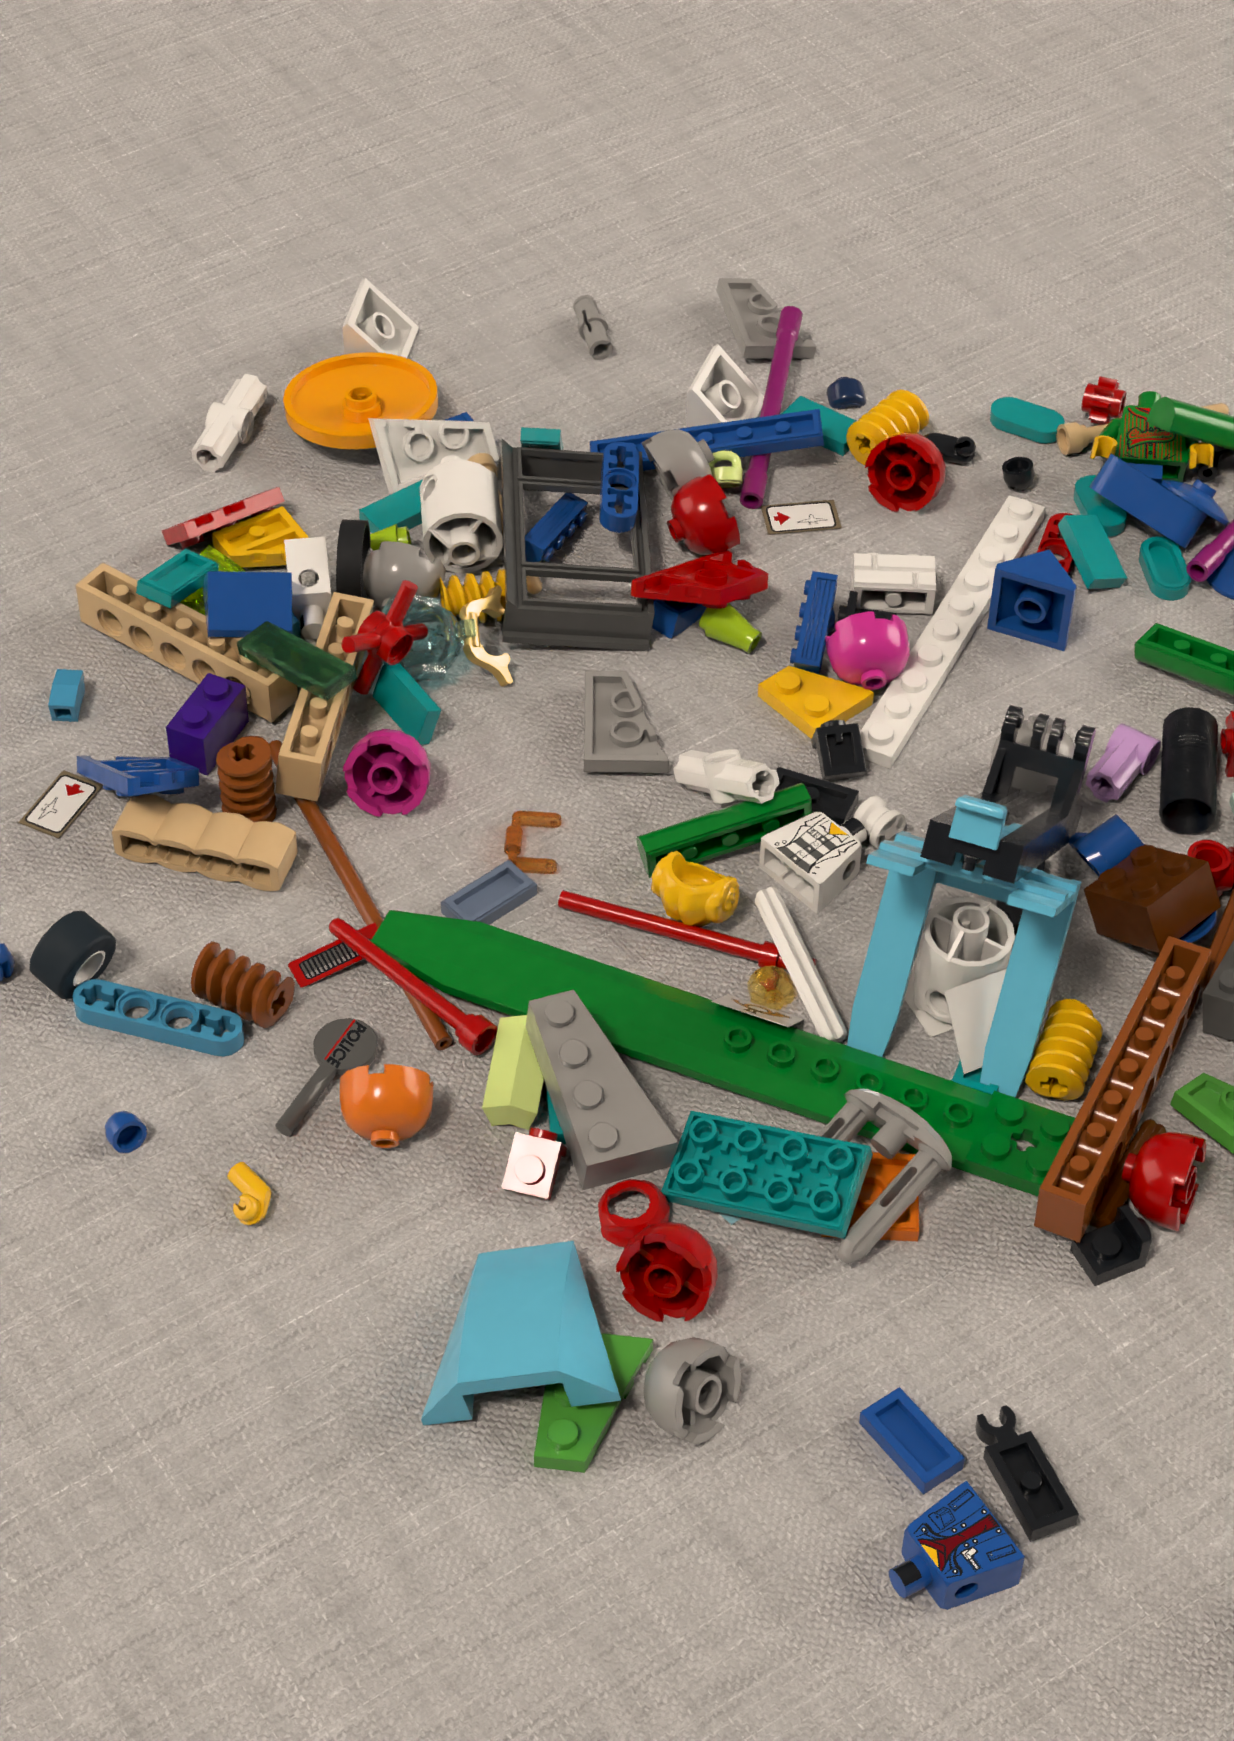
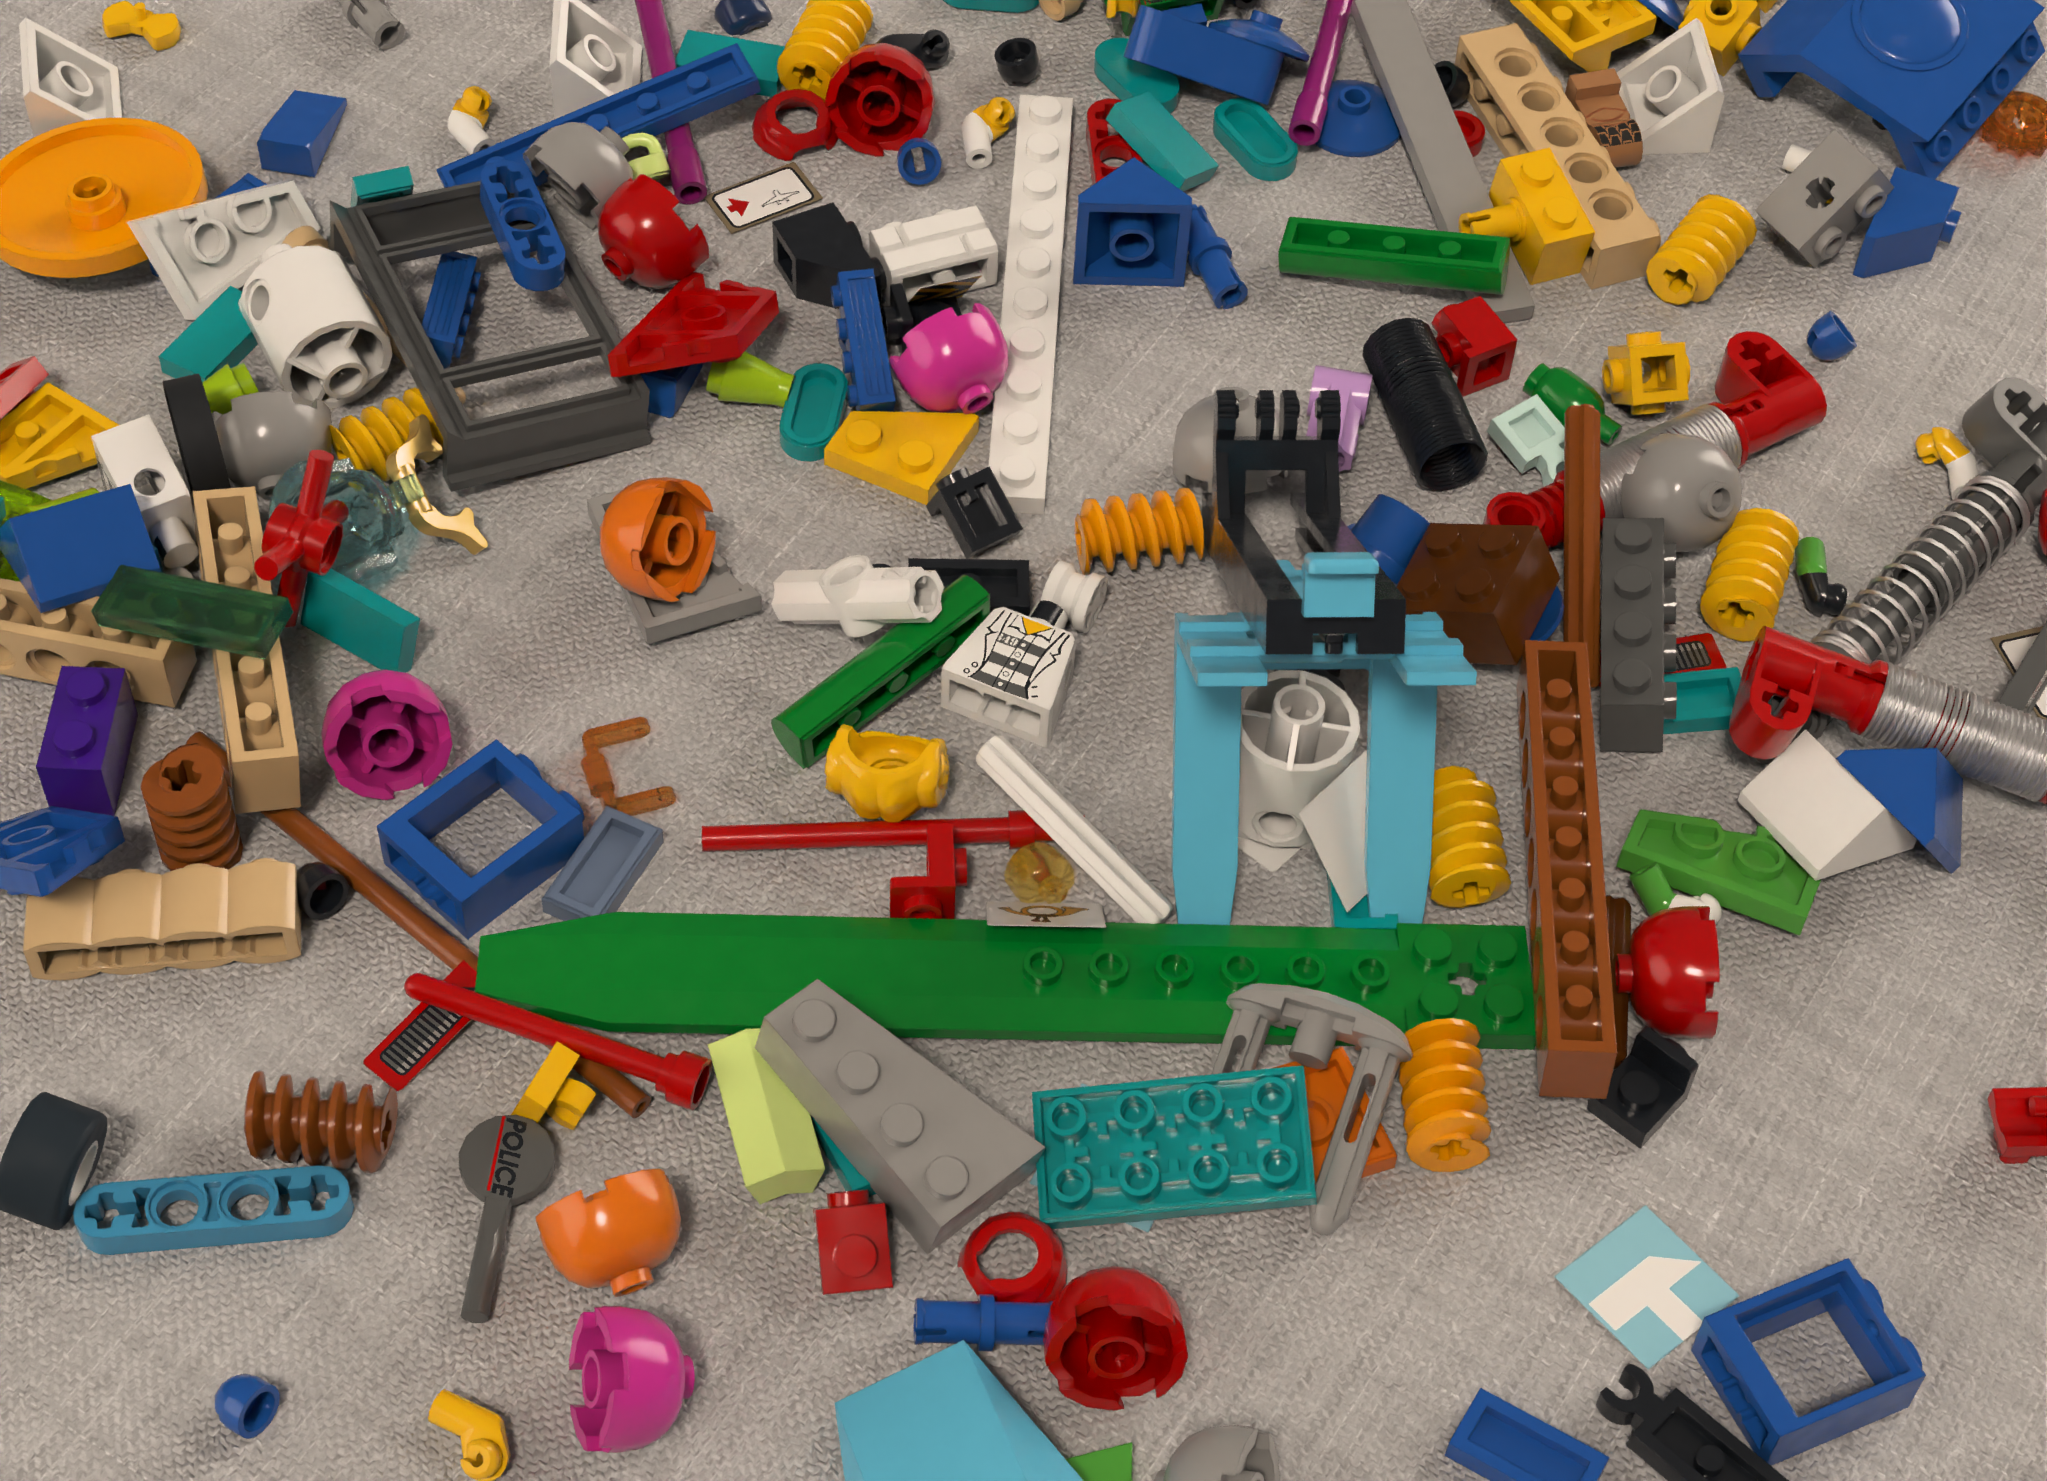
camera: 25 degrees left, 5 degrees up
(305, 859) = (320, 890): none -> black hinge
(355, 1191) = (629, 1378): none -> dark pink cylinder
(391, 1014) = (552, 1092): none -> yellow tile
(426, 881) = (478, 900): none -> blue window
(437, 297) = (159, 30): none -> yellow piece
(514, 396) = (300, 133): none -> blue slope
(590, 1236) = (980, 1322): none -> blue pin
(613, 703) = (658, 538): none -> orange cylinder
(628, 415) = (469, 119): none -> arm
(696, 972) = (932, 894): none -> red bracket
(764, 658) = (813, 411): none -> teal tile
(819, 552) = (817, 246): none -> black slope
(827, 481) = (778, 139): none -> red piece
(886, 604) = (944, 290): none -> sticker
(908, 518) = (931, 160): none -> blue hinge
(933, 791) = (1138, 529): none -> light orange piece
(967, 1203) = (1444, 1096): none -> light orange piece
(973, 510) = (984, 127): none -> arm
(1052, 1370) = (1646, 1286): none -> medium azure sticker
(1088, 635) = (1210, 259): none -> blue pin
(1133, 1410) = (1754, 1397): none -> blue window
(1216, 1150) = (1657, 894): none -> bright green arm

